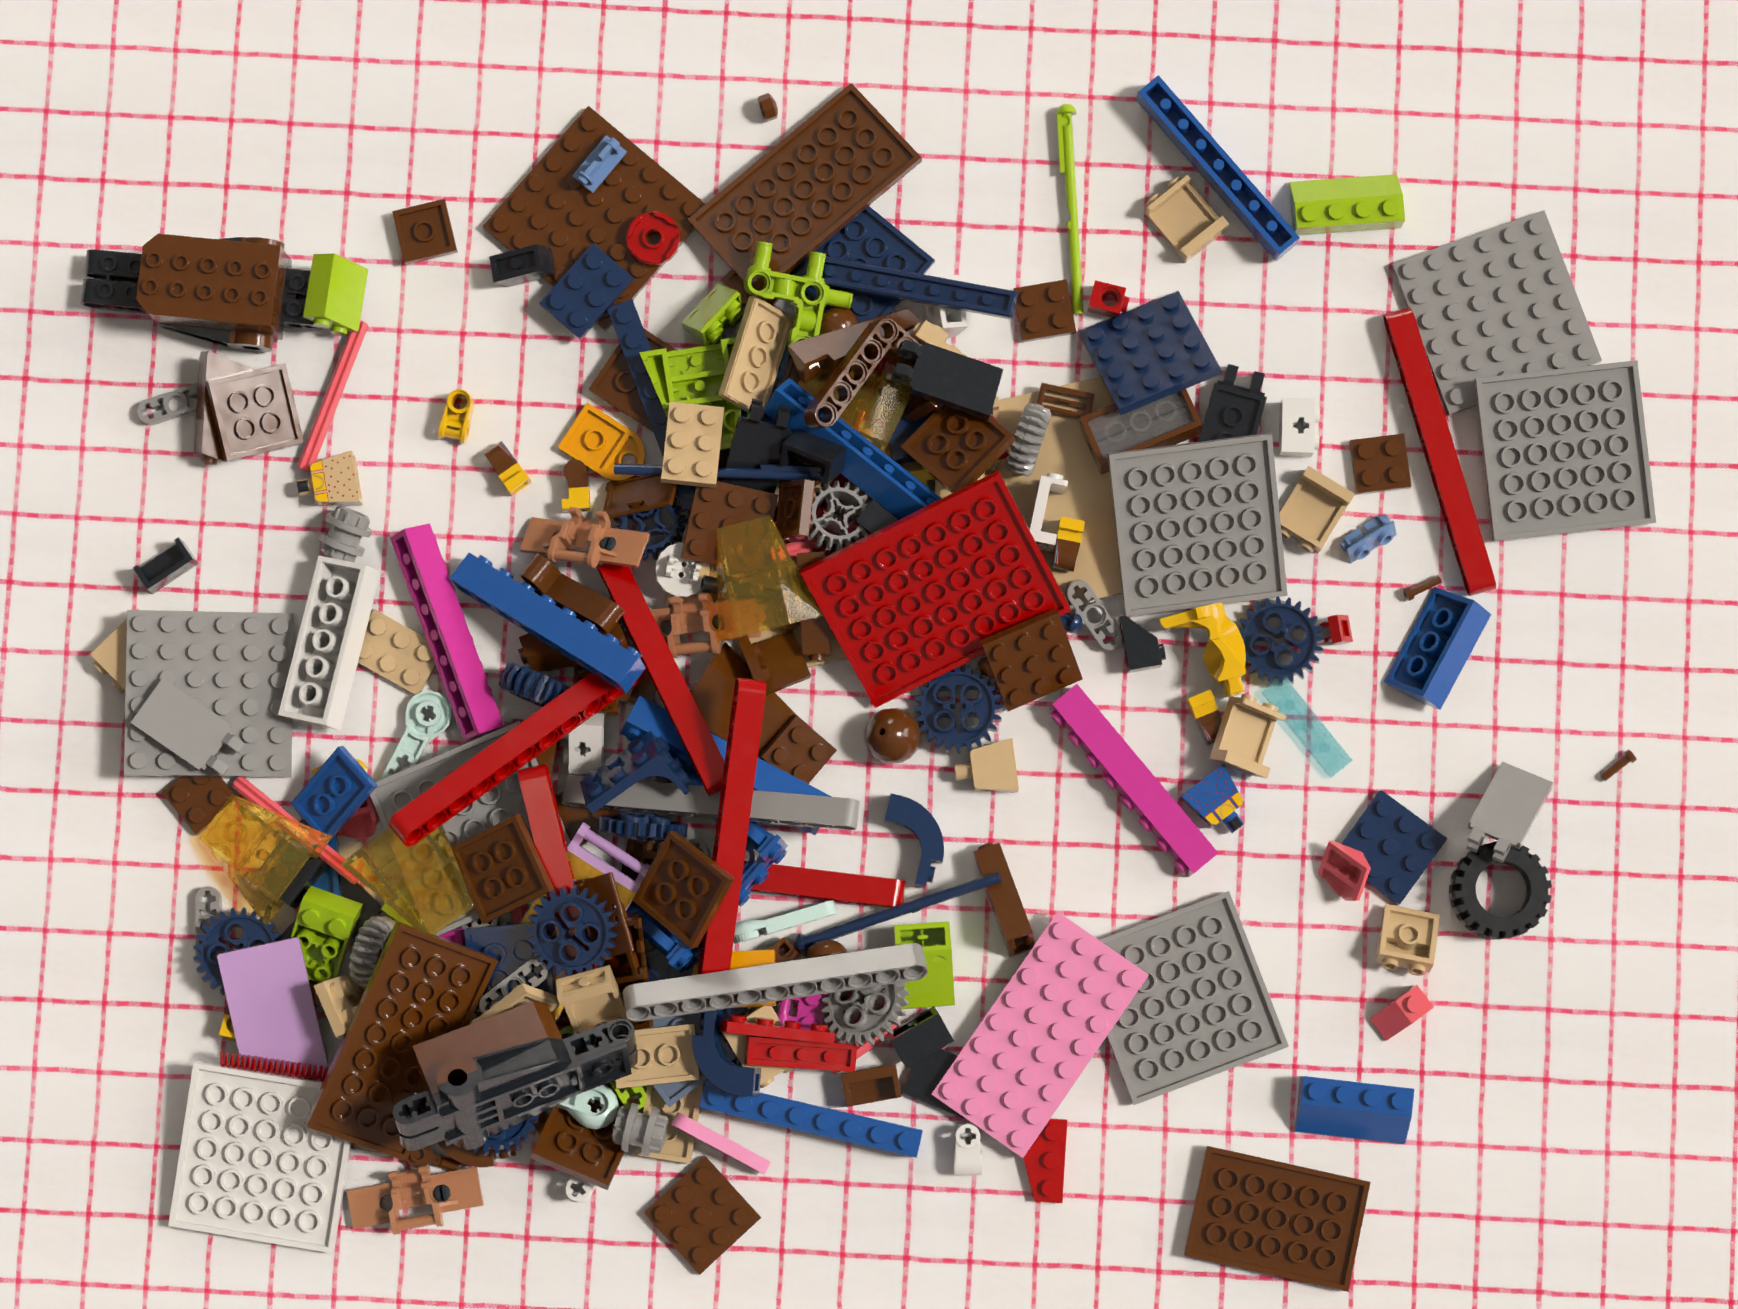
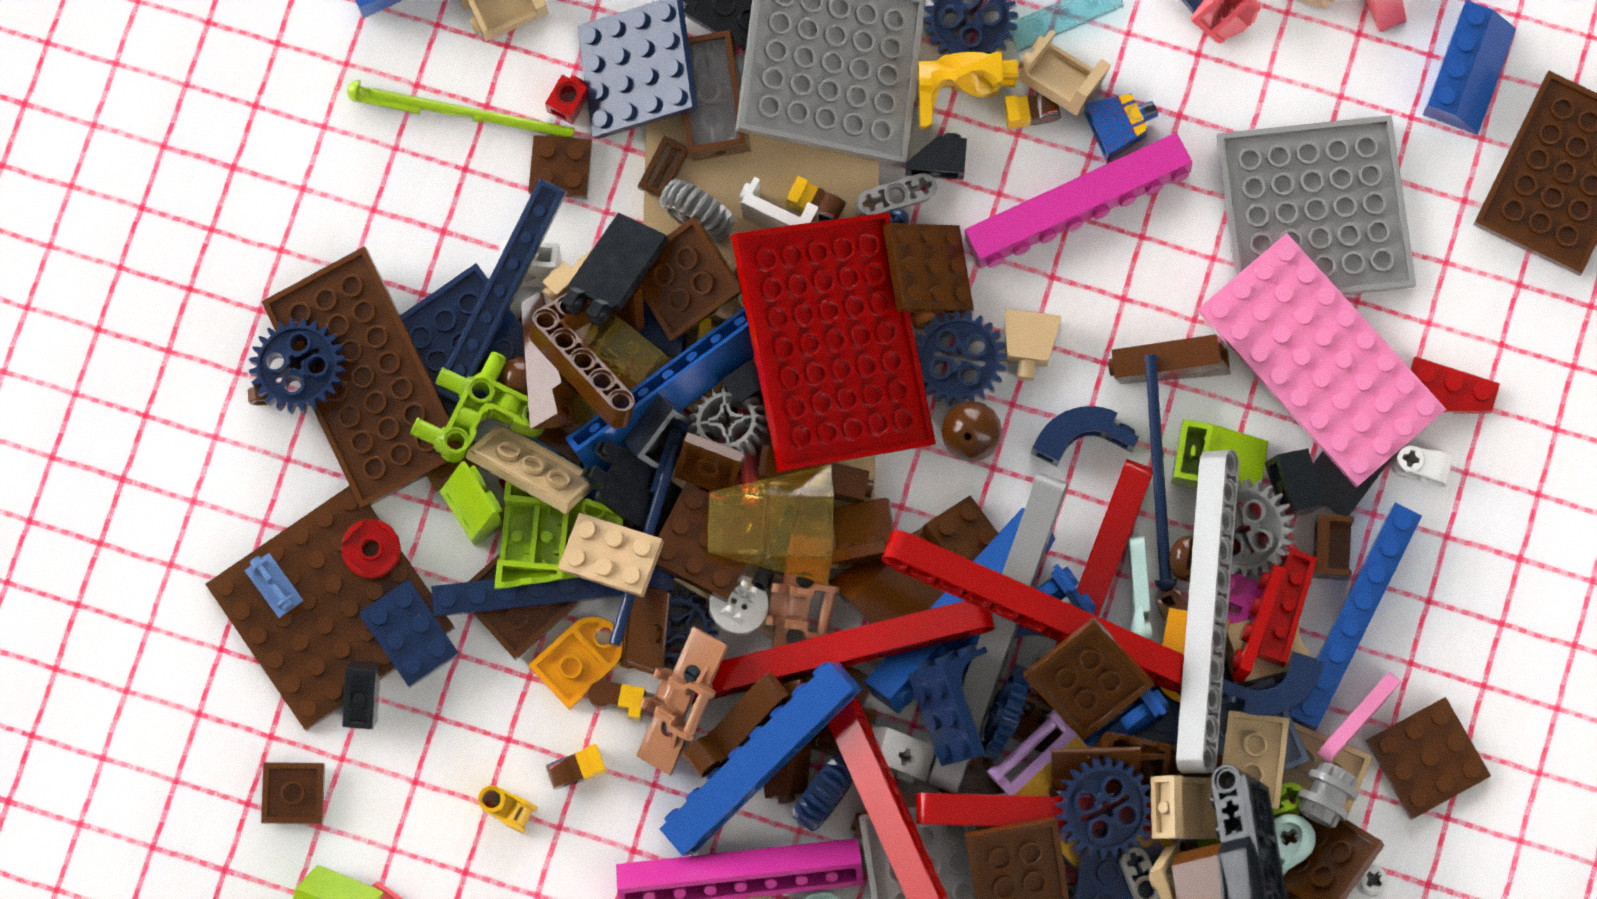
camera: 75 degrees left, 5 degrees down
(812, 111) = (313, 386): none -> dark blue gear

